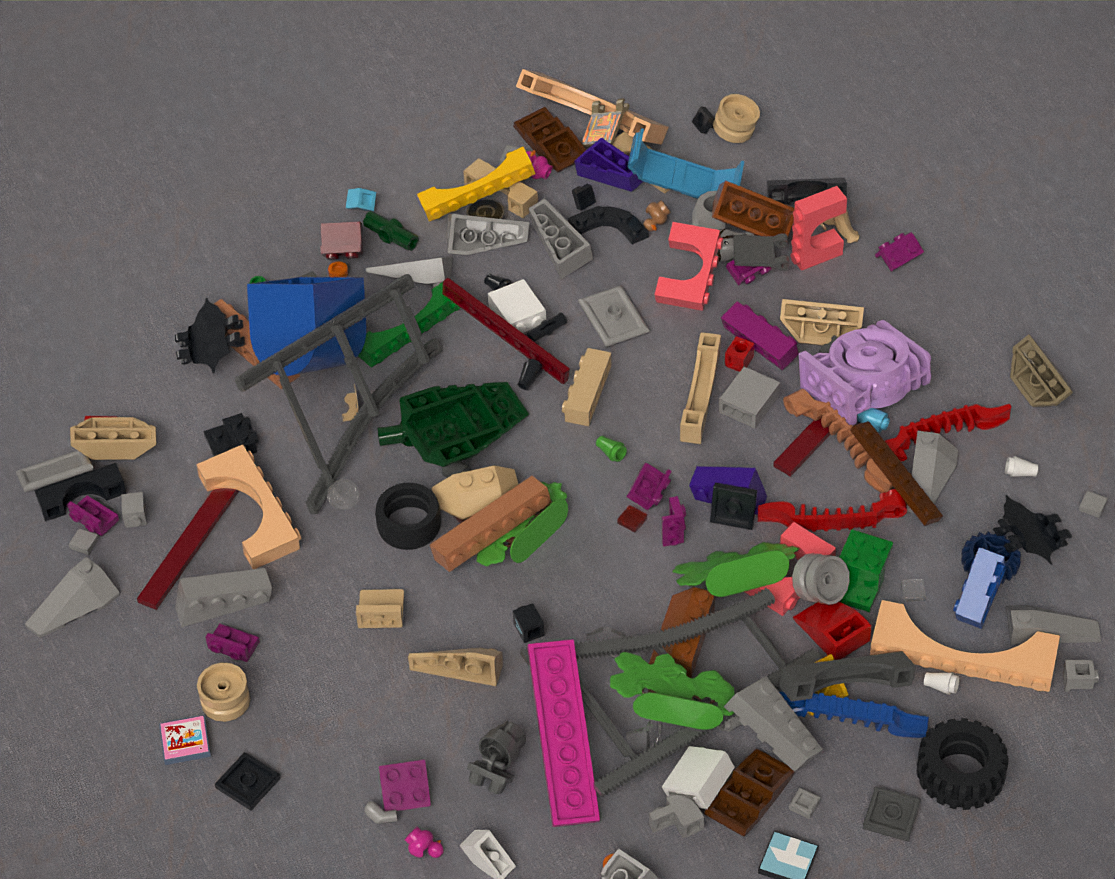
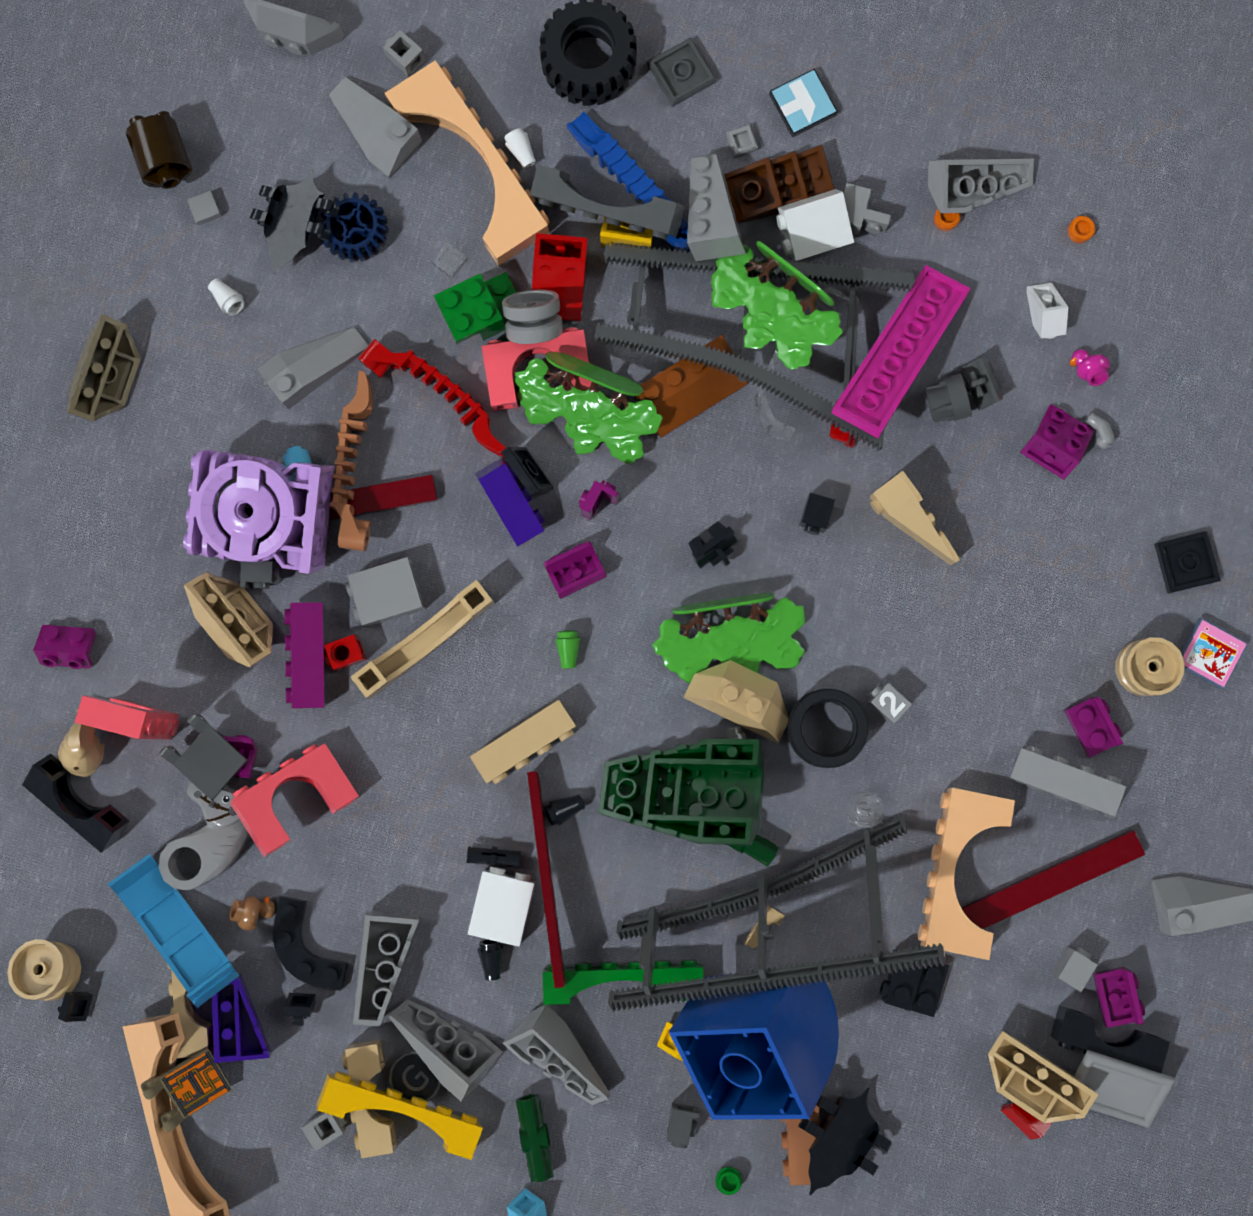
camera: 140 degrees left, 35 degrees up
(83, 541) = (1146, 973): light grey tile -> none
(338, 269) = (630, 1130): orange tile -> none
(341, 240) = (600, 1164): bracket -> none
(380, 608) = (933, 646): tan bracket -> none
(381, 558) = (888, 702): none -> light grey brick
(490, 523) = (762, 645): nougat brick -> none
(540, 165) = (304, 1091): dark pink animal -> none
(550, 138) = (255, 1126): reddish brown slope -> none
(573, 556) = (716, 549): none -> black hips
(613, 316) = (414, 816): light grey piece -> none
(632, 518) = (619, 552): clear red tile -> none
(751, 211) = (165, 811): dark orange slope -> none
(896, 473) = (347, 377): reddish brown plate -> none
(980, 588) = (402, 190): wedge -> none
(982, 417) = (320, 412): red piece -> none

